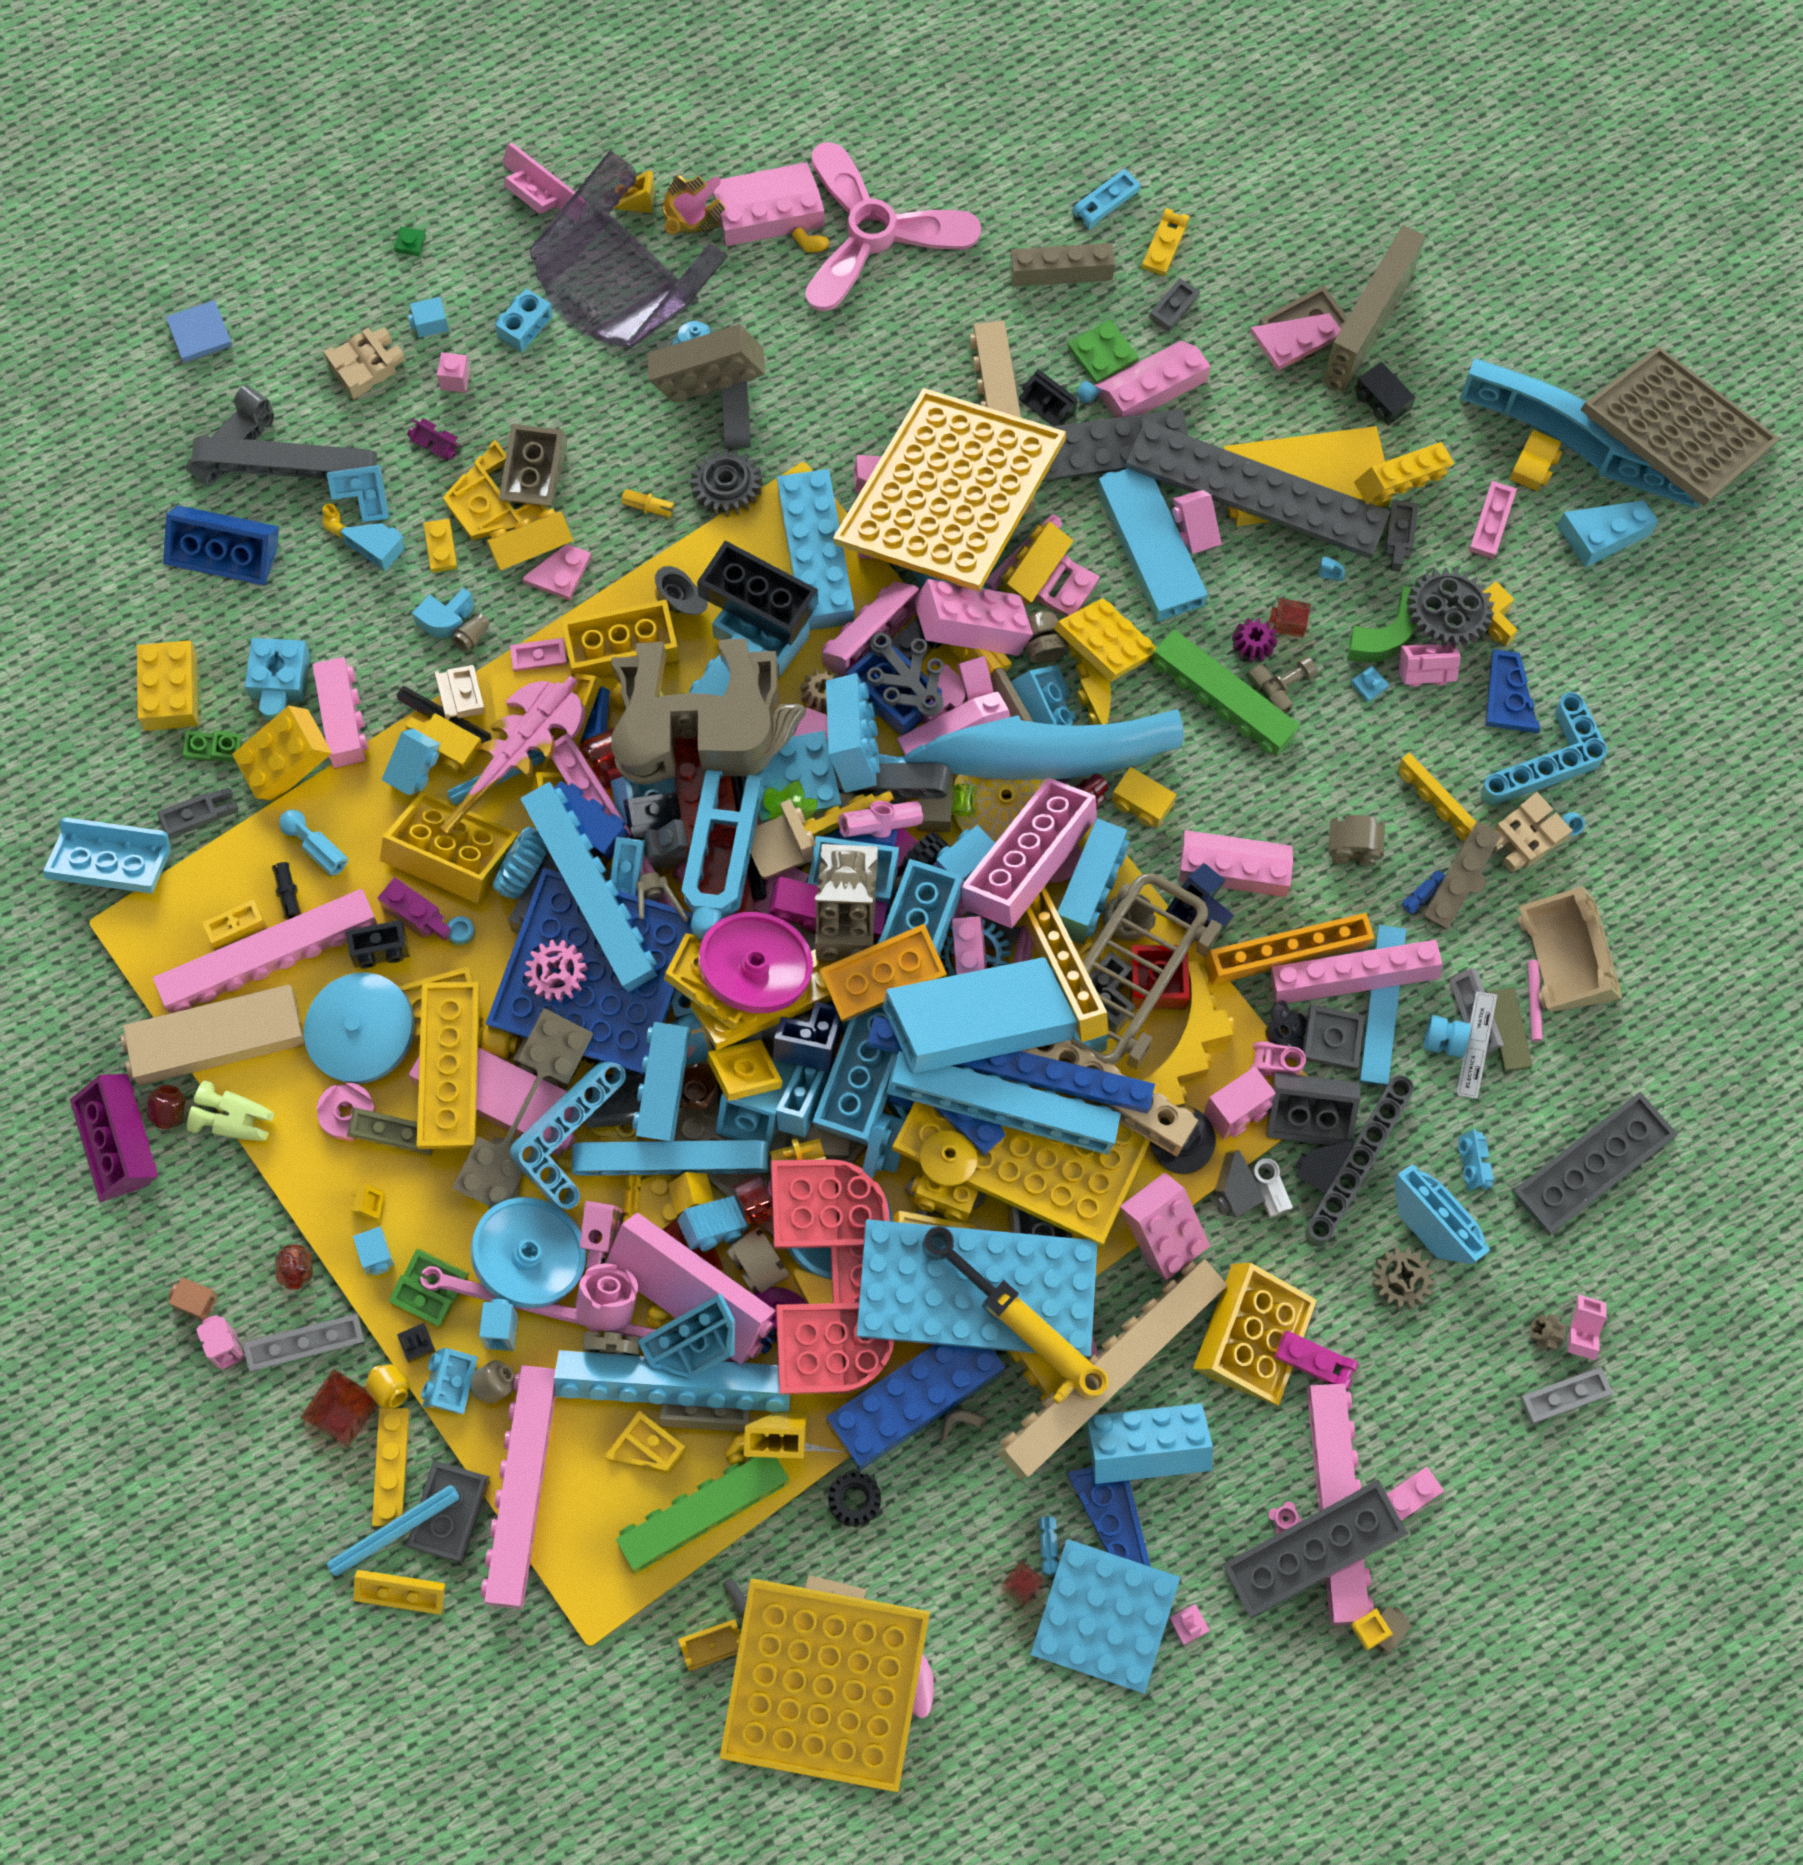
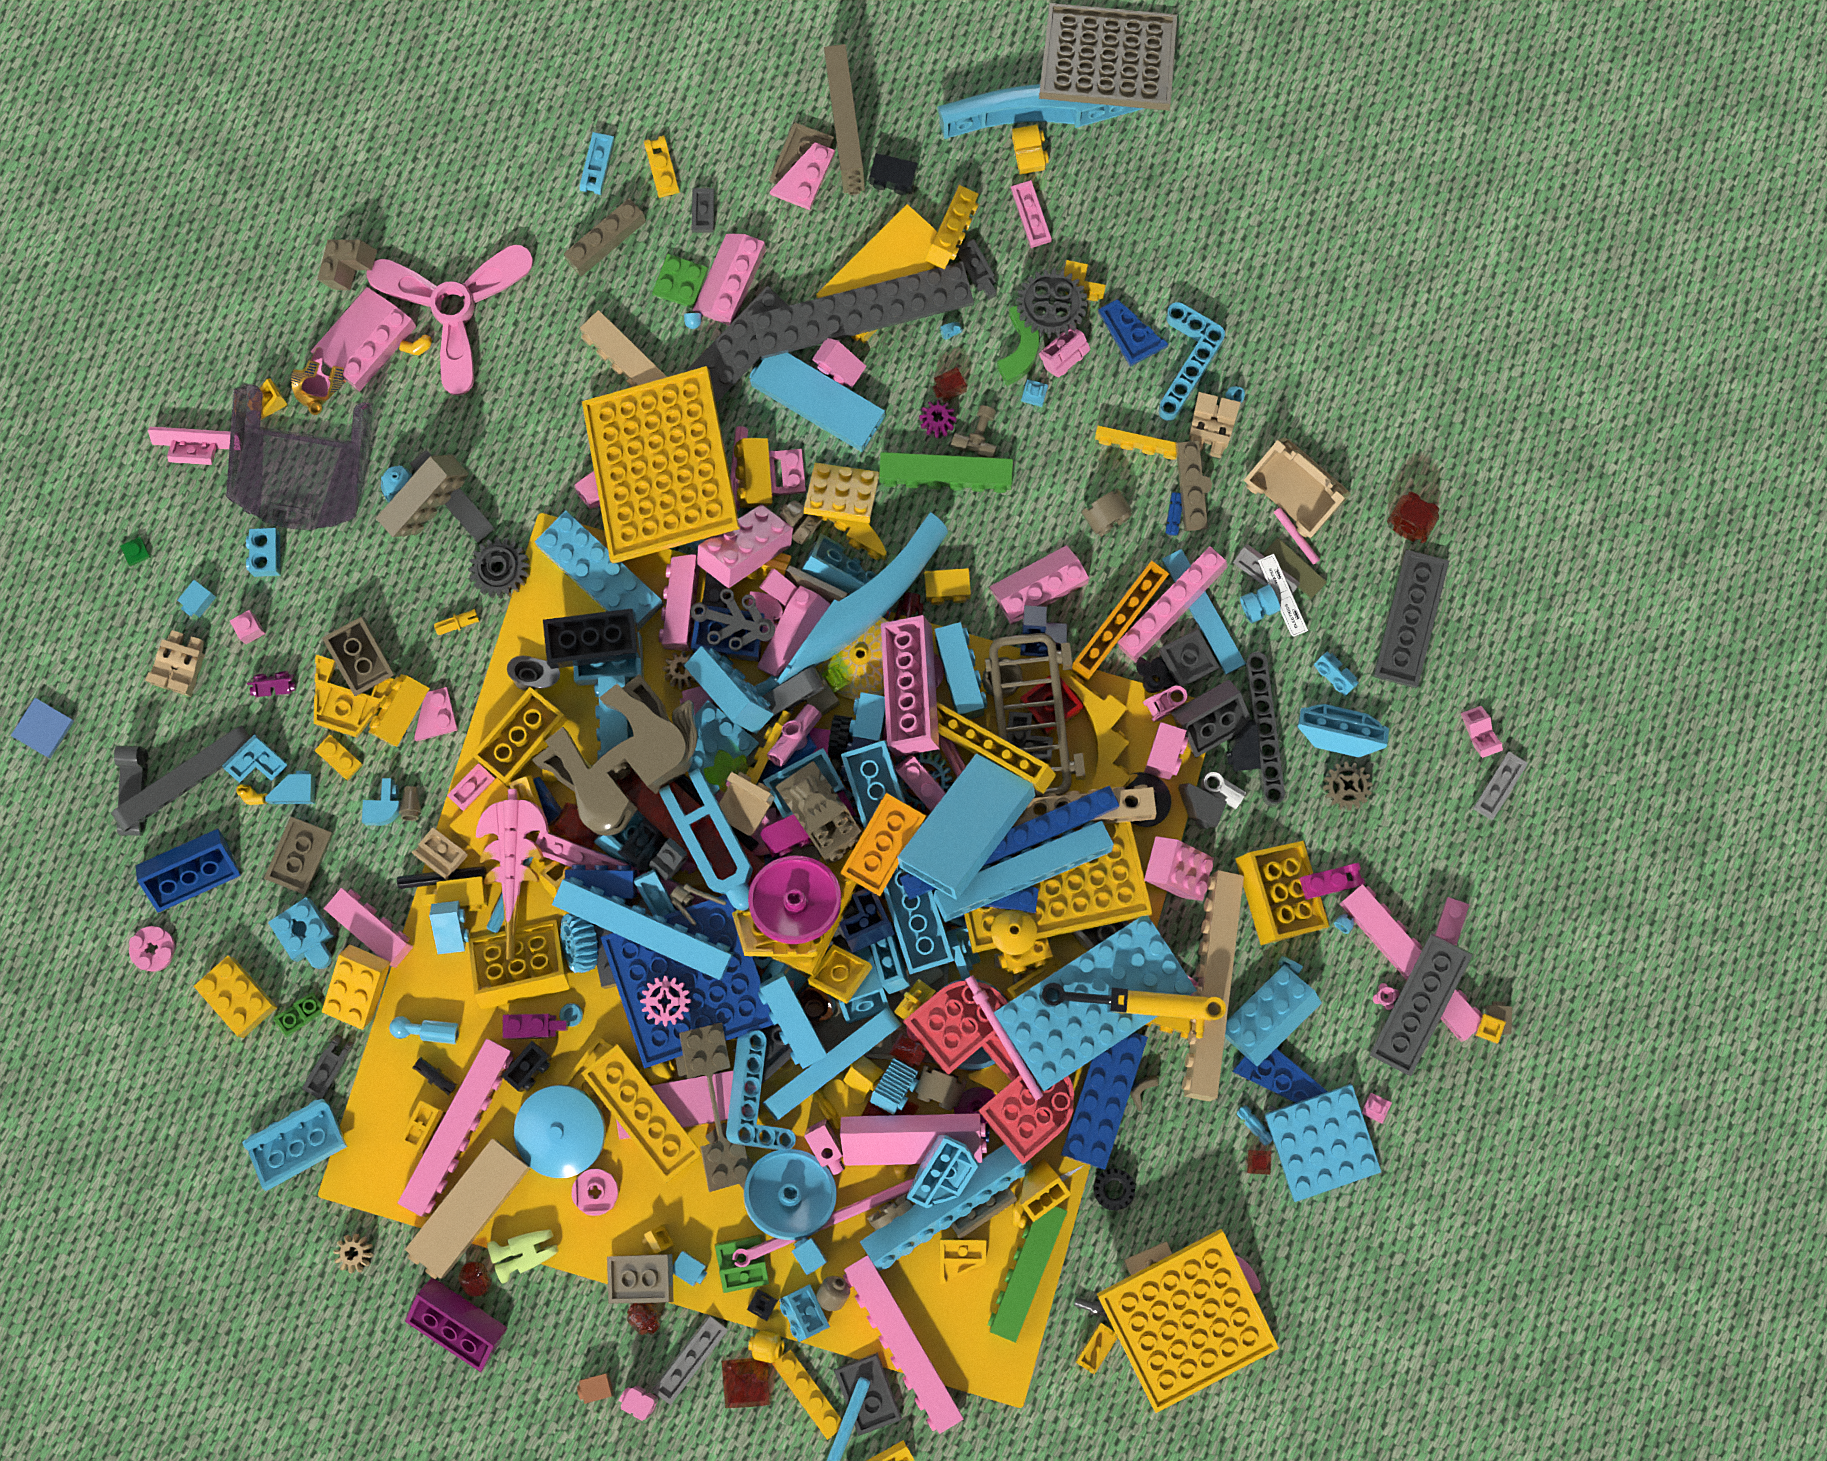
camera: 30 degrees left, 10 degrees up
(81, 988) = (357, 1260): none -> tan gear
(136, 603) = (140, 943): none -> bright pink plate
(319, 1223) = (640, 1279): none -> dark tan plate
(330, 604) = (298, 856): none -> dark tan plate
(385, 1130) = (631, 1185): olive tile -> none
(606, 1297) = (864, 1185): bright pink brick -> none
(803, 121) = (341, 261): none -> dark tan brick
(865, 1197) = (980, 998): none -> bright pink bar
(1048, 399) = (670, 344): black hinge -> none
(1210, 1412) = (1292, 965): none -> medium azure tile
(1298, 1409) = (1345, 922): none -> medium azure hinge
(1547, 1331) = (1460, 753): dark tan gear -> none
(1606, 529) = (1110, 167): medium azure wedge -> none
(1671, 1064) = (1414, 517): none -> clear red brick

